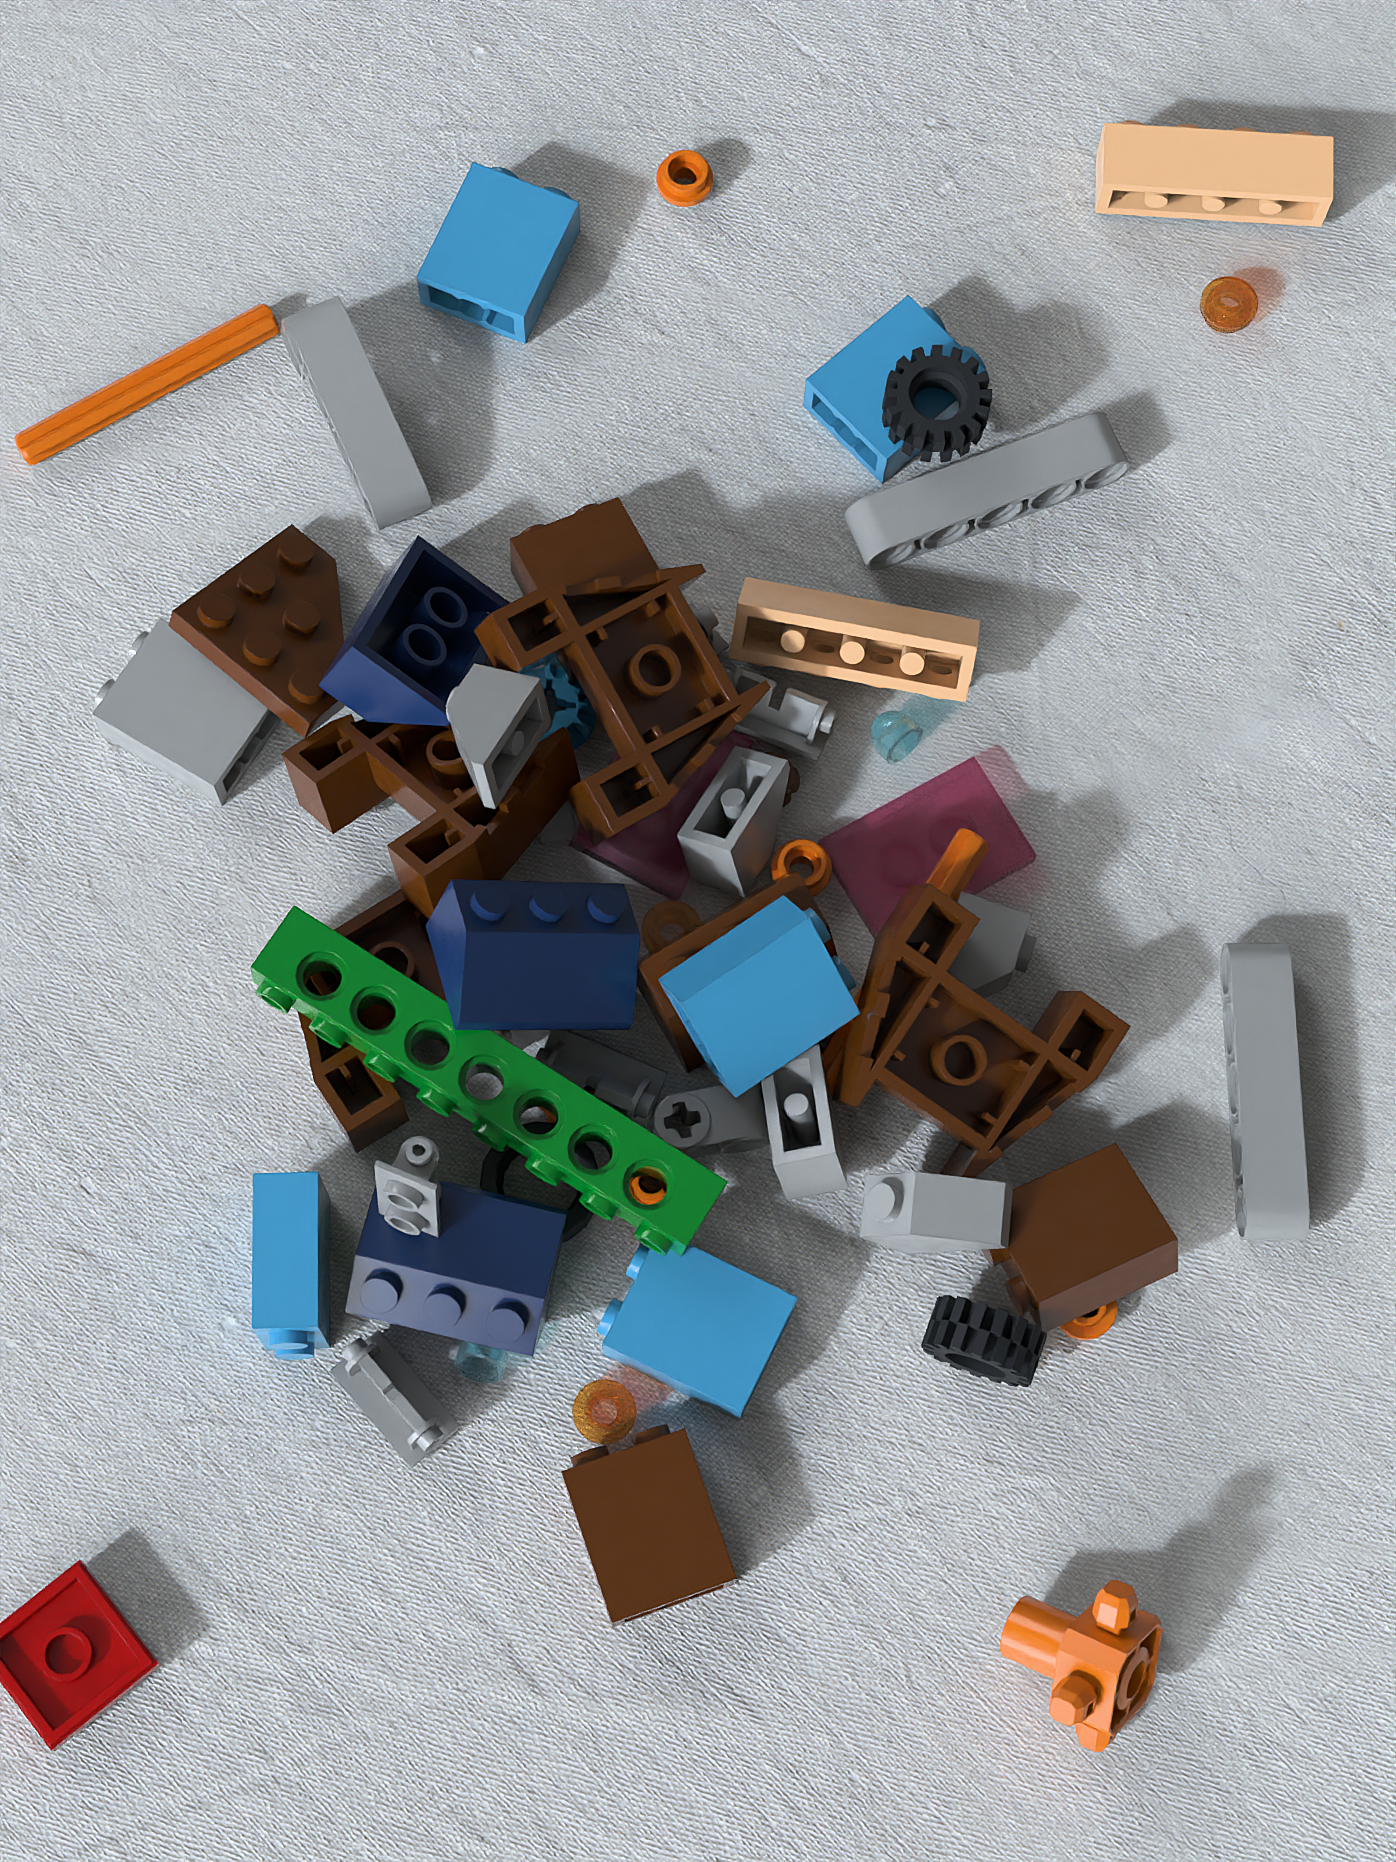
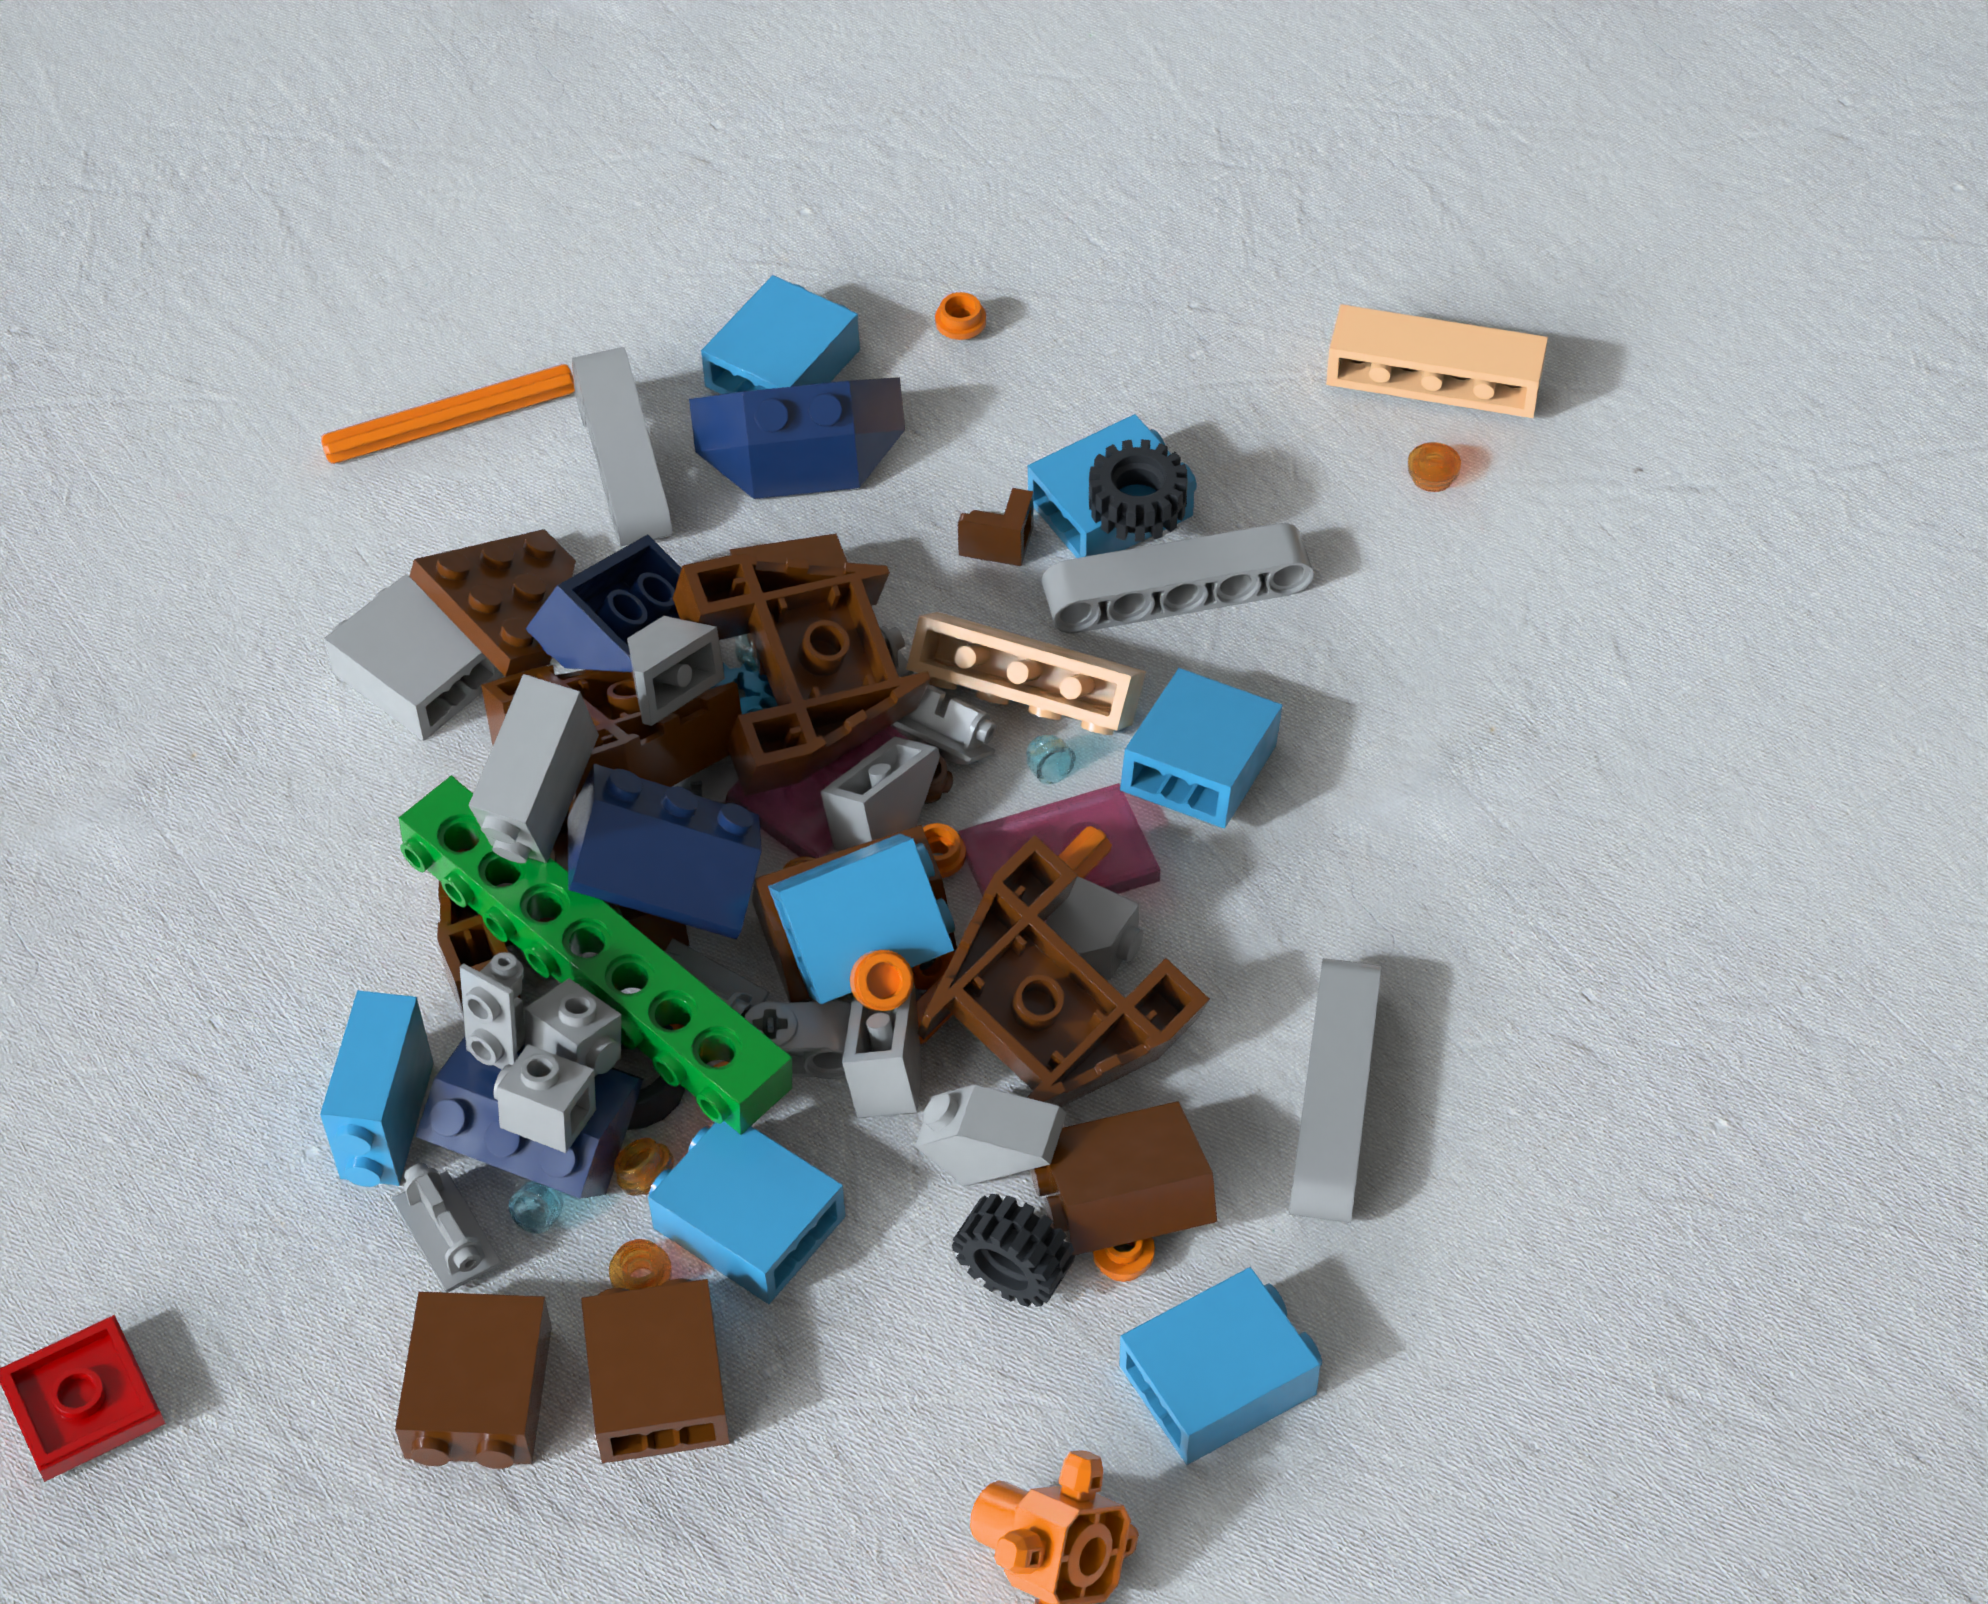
camera: 15 degrees right, 20 degrees down
(397, 918) = (534, 770): none -> light grey brick
(467, 1570) = (474, 1379): none -> reddish brown brick
(482, 1272) = (545, 1098): none -> light grey brick
(492, 1185) = (575, 1027): none -> light grey brick
(545, 367) = (799, 435): none -> dark blue wedge
(571, 1290) = (641, 1164): none -> clear orange plate
(783, 457) = (998, 536): none -> reddish brown panel
(795, 1065) = (881, 980): none -> orange tile
(1056, 706) = (1201, 748): none -> dark azure brick
(1208, 1425) = (1220, 1364): none -> dark azure brick

